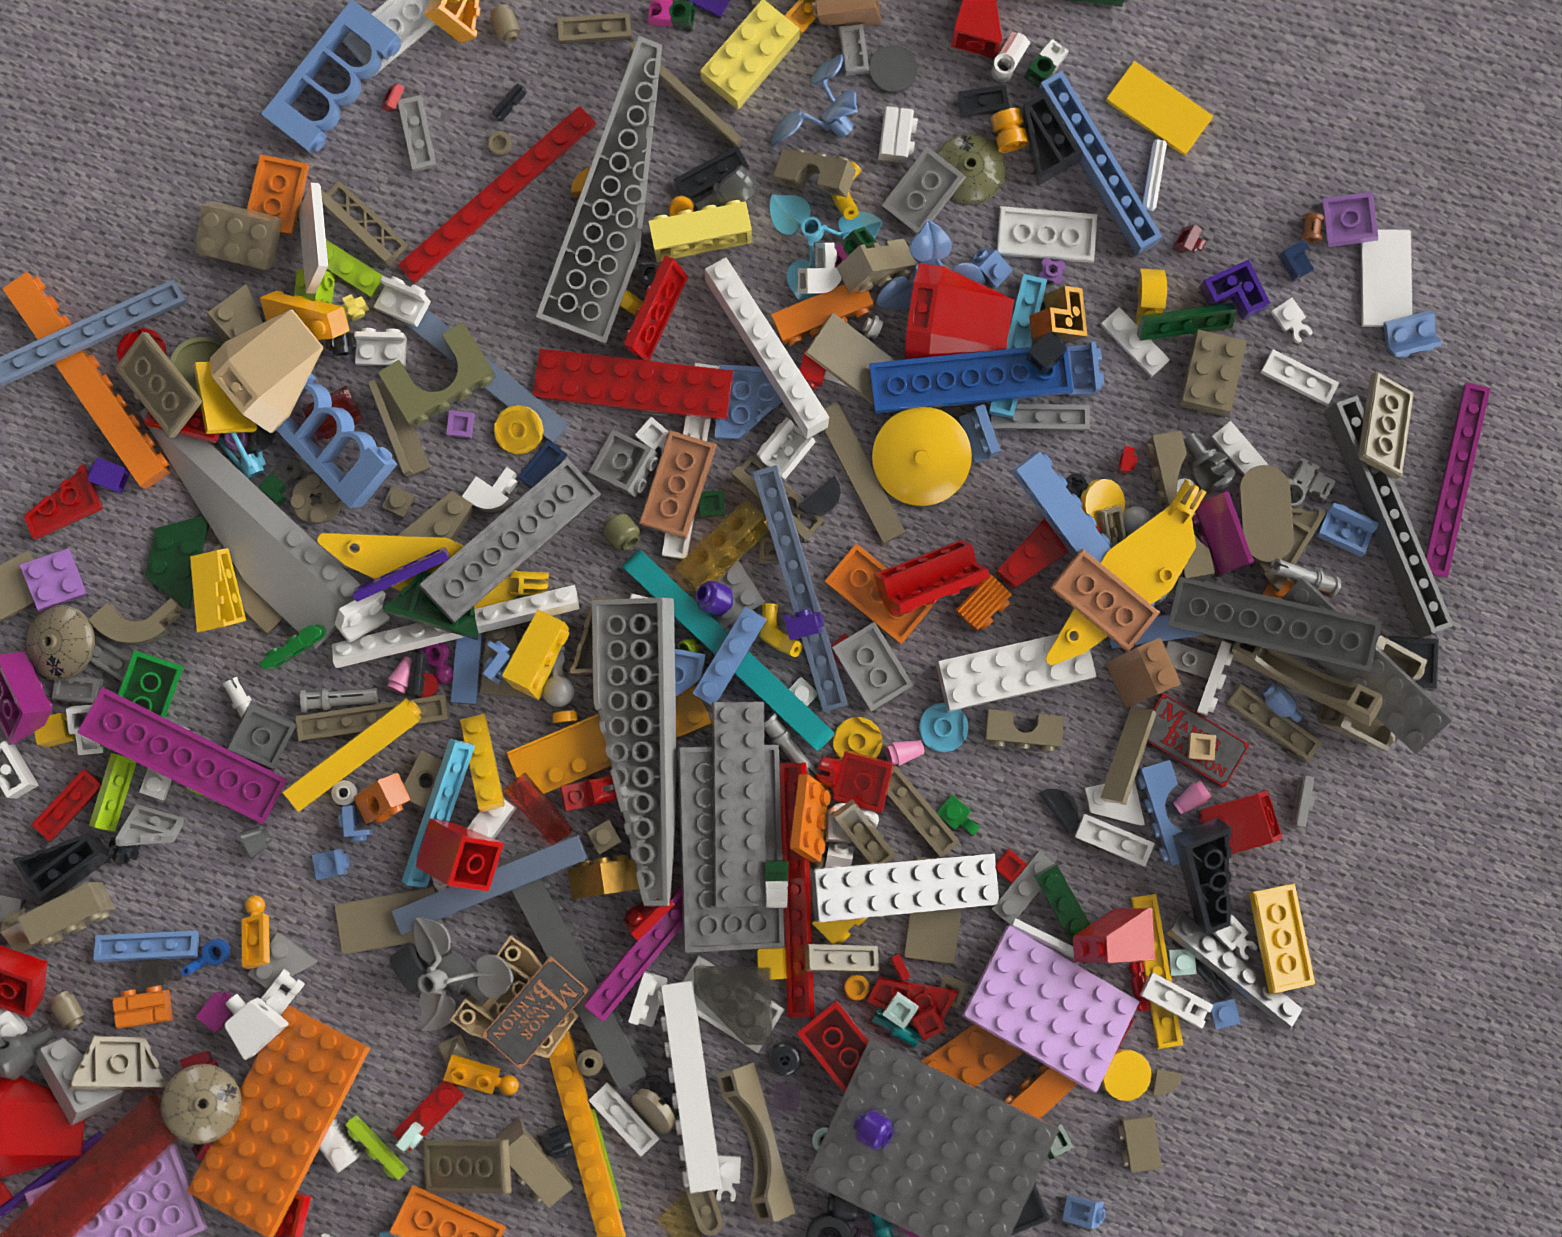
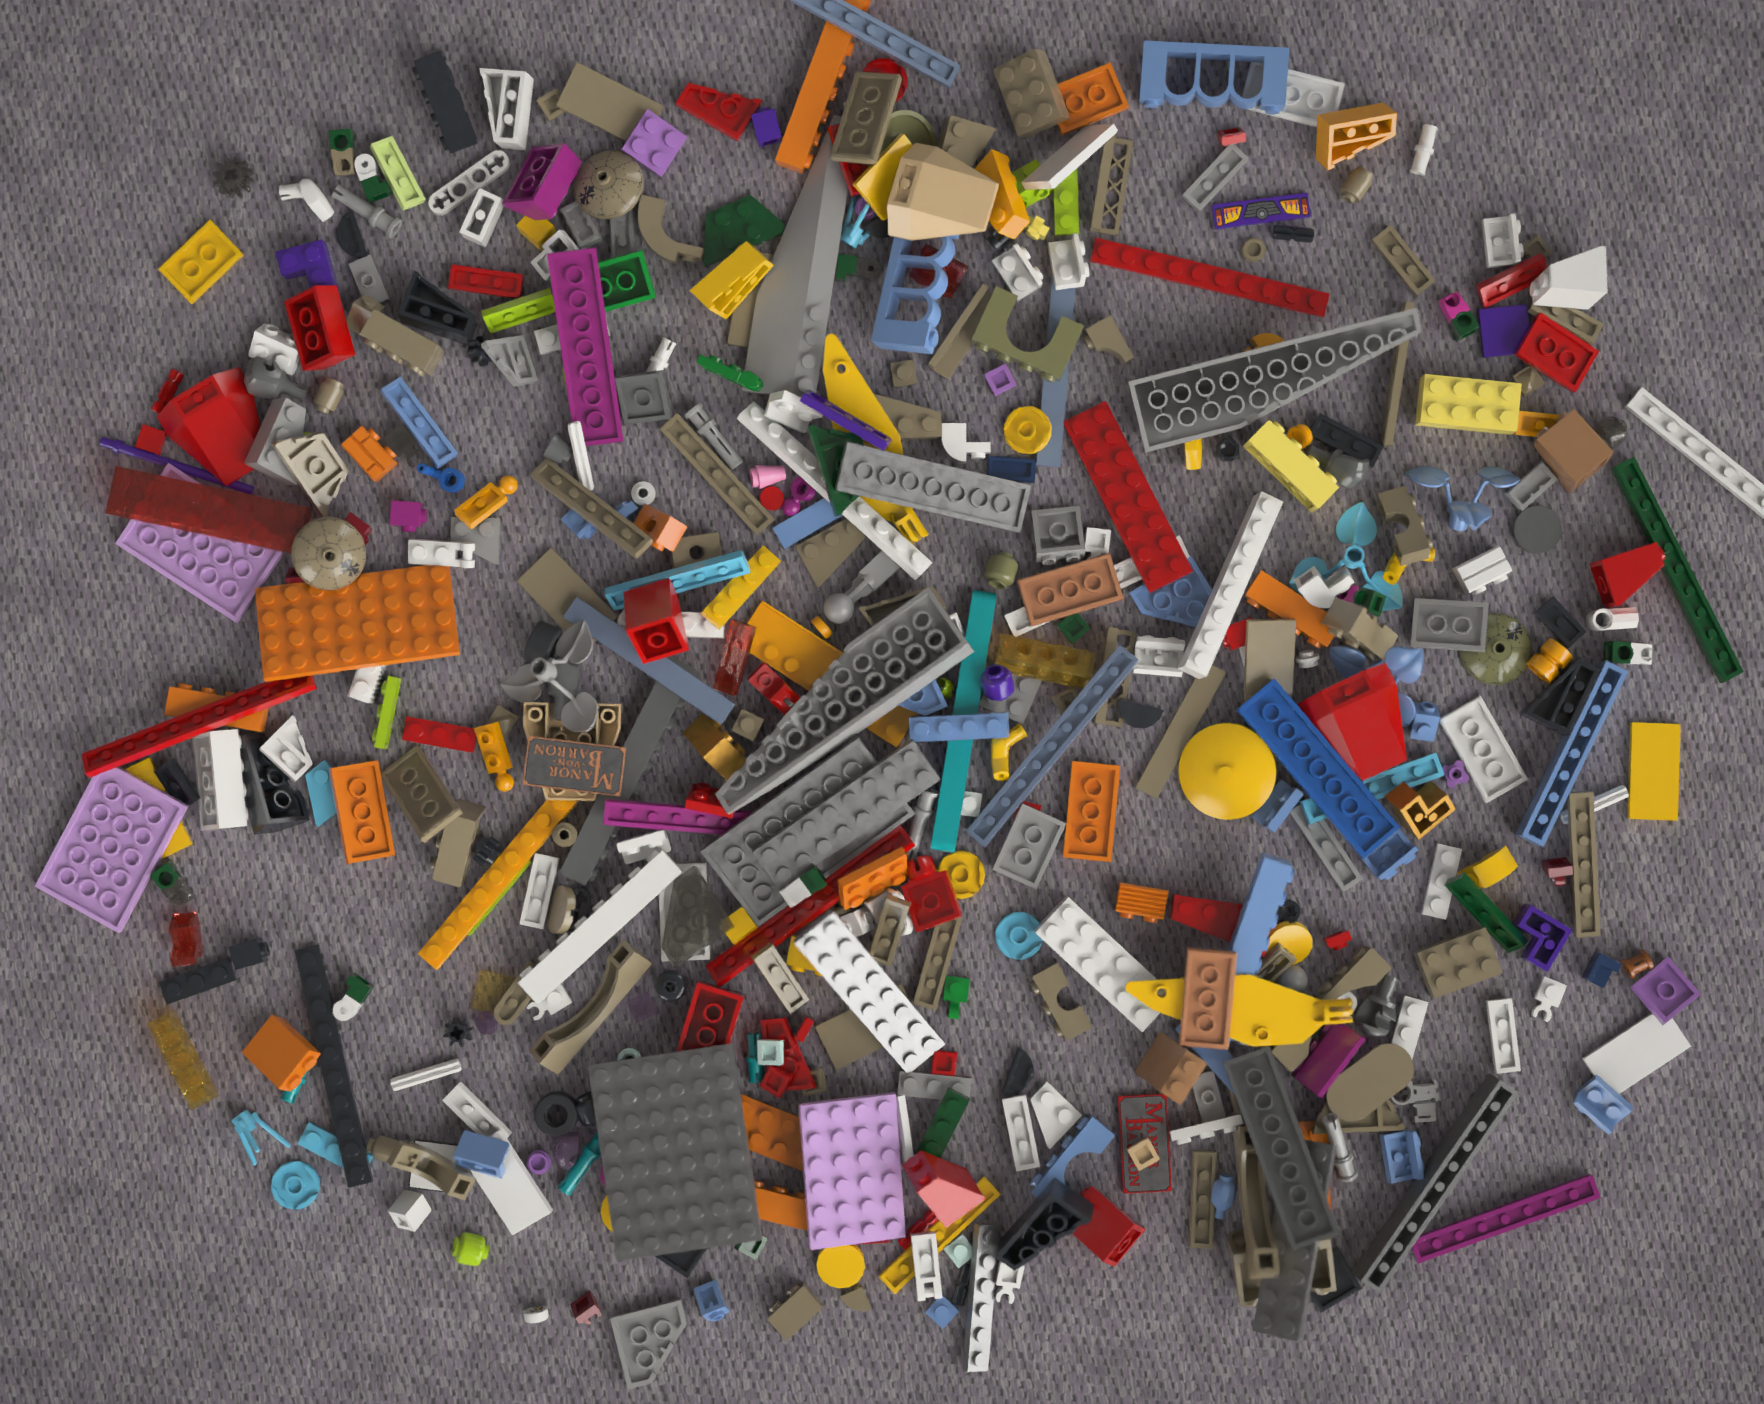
camera: 60 degrees right, 5 degrees up
(252, 1025) = (415, 550): white torso -> none
(274, 824) = (580, 454): none -> white axle
(302, 500) = (851, 296): dark tan plate -> none
(324, 845) = (591, 508): none -> dark tan plate
(353, 754) = (678, 480): yellow brick -> none
(411, 1137) = (413, 735): light aqua plate -> none
(418, 667) = (781, 483): black piece -> none
(472, 115) = (1261, 211): none -> tile
(487, 311) = (1107, 337): none -> dark tan arch
(496, 665) = (824, 547): medium blue bracket -> none
(536, 654) = (855, 572): yellow wedge -> none
(656, 309) = (1201, 474): red plate -> none
(803, 624) = (1024, 769): dark purple brick -> none
(856, 987) = (765, 1004): light orange tile -> none
(873, 1130) = (662, 1094): dark purple head -> none
(903, 751) = (976, 916): bright pink cone -> none
(929, 577) = (1131, 844): red brick -> none
(1046, 352) = (1380, 817): black brick -> none
(1128, 755) = (1096, 1099): dark tan tile -> none
(1192, 797) = (1097, 1173): bright pink cone -> none
(1195, 212) = (1584, 862): none -> dark tan plate
(1281, 938) = (1032, 1318): yellow tile -> none
(1303, 801) = (1154, 1264): light grey plate -> none
(1385, 425) = (1509, 1132): dark tan tile -> none

